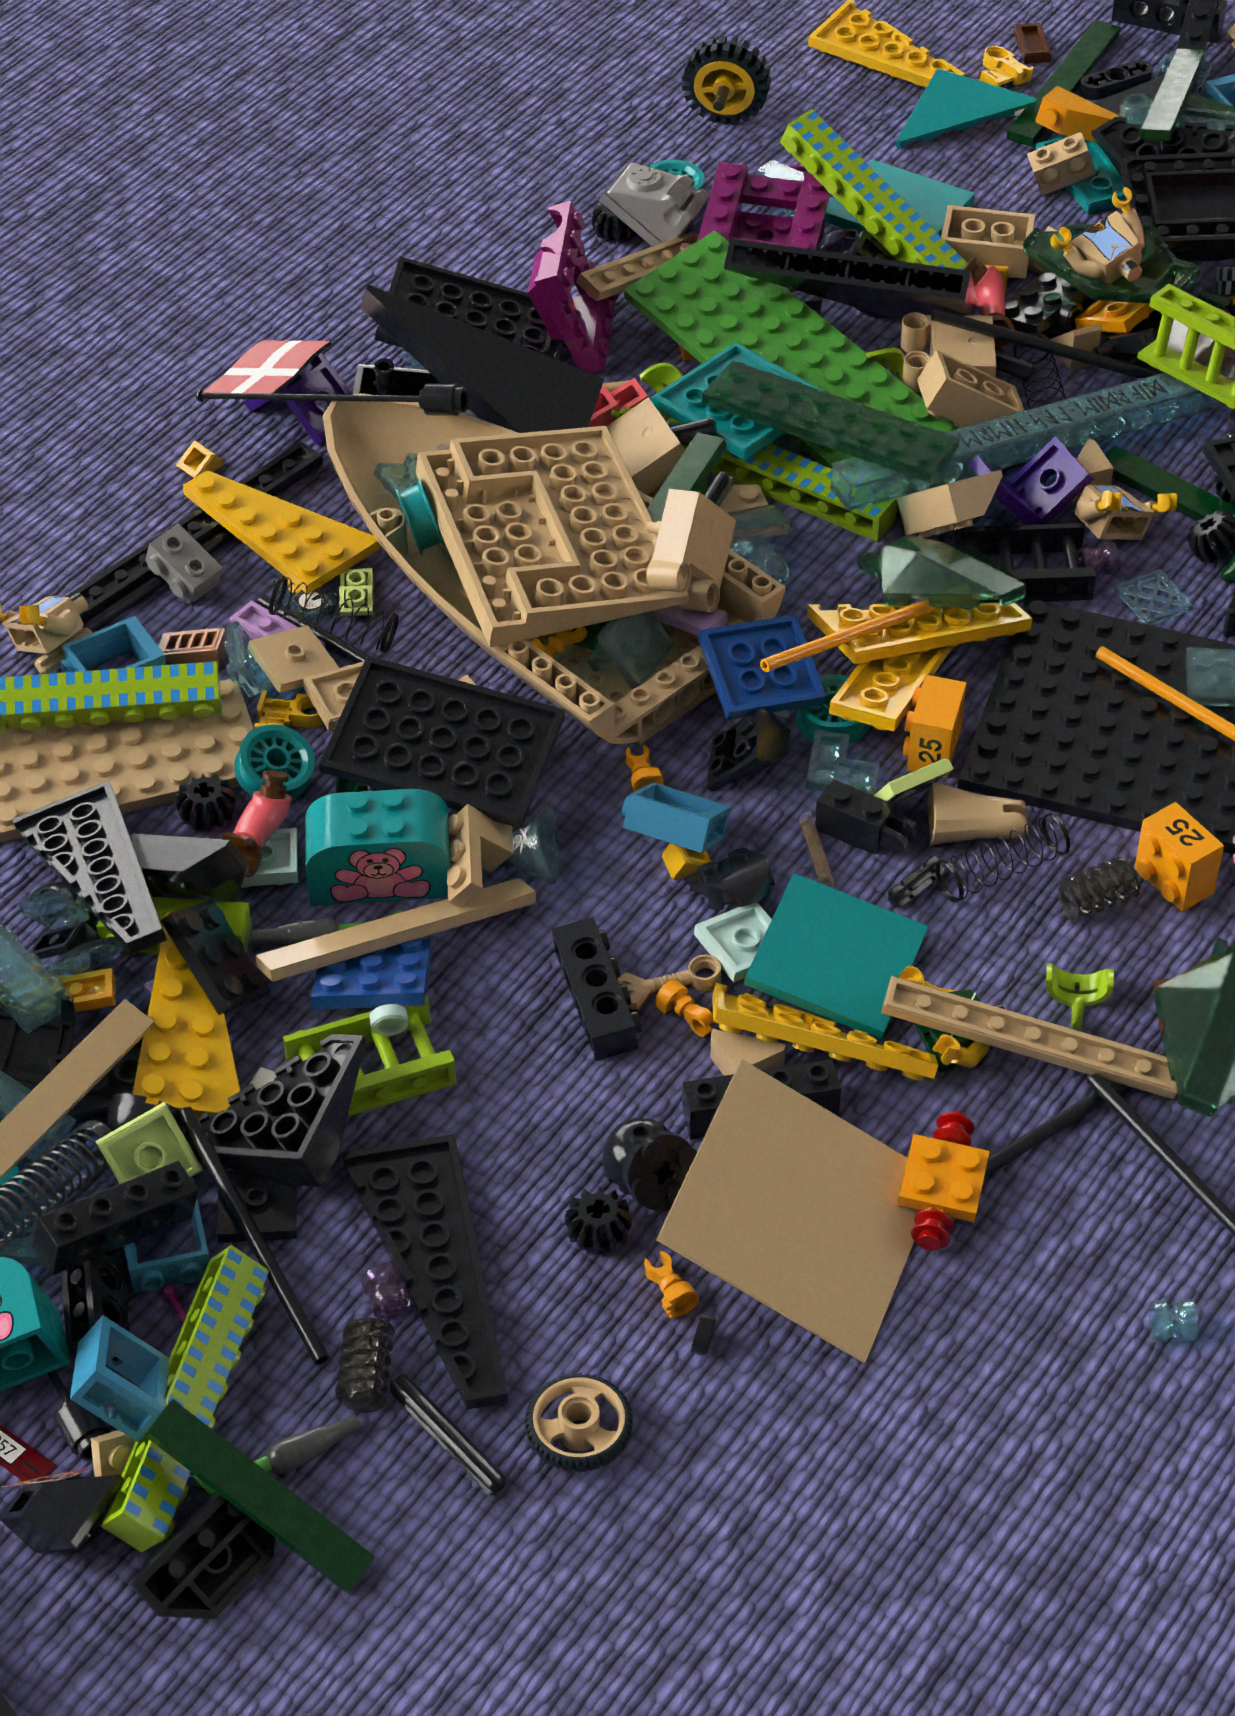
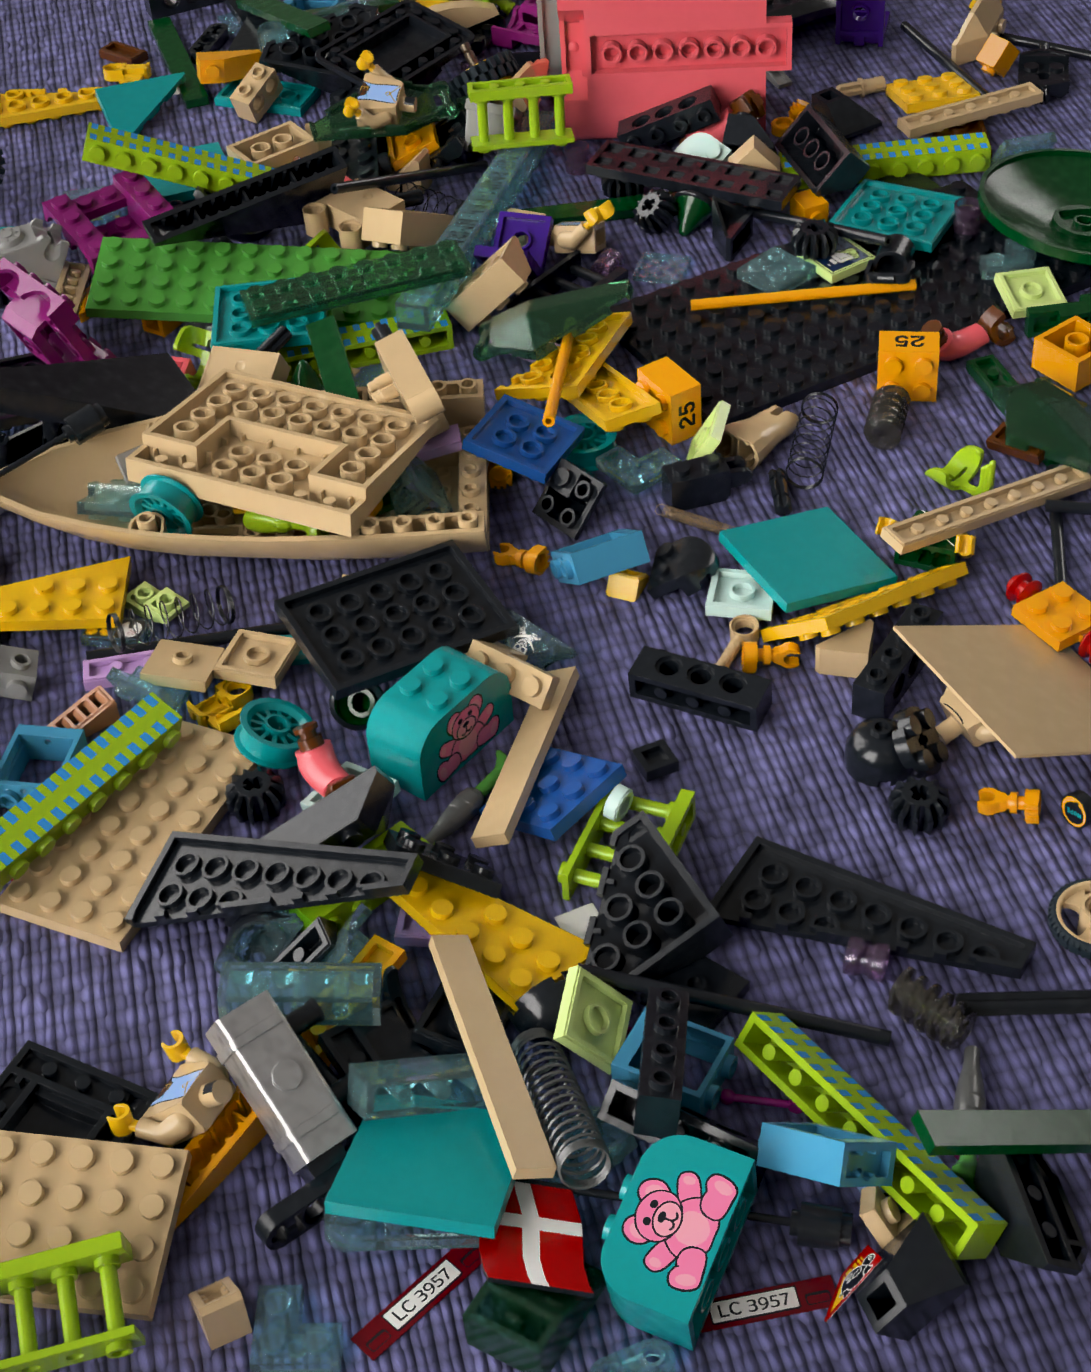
camera: 45 degrees left, 5 degrees down
(483, 1014) = (655, 760): none -> black plate

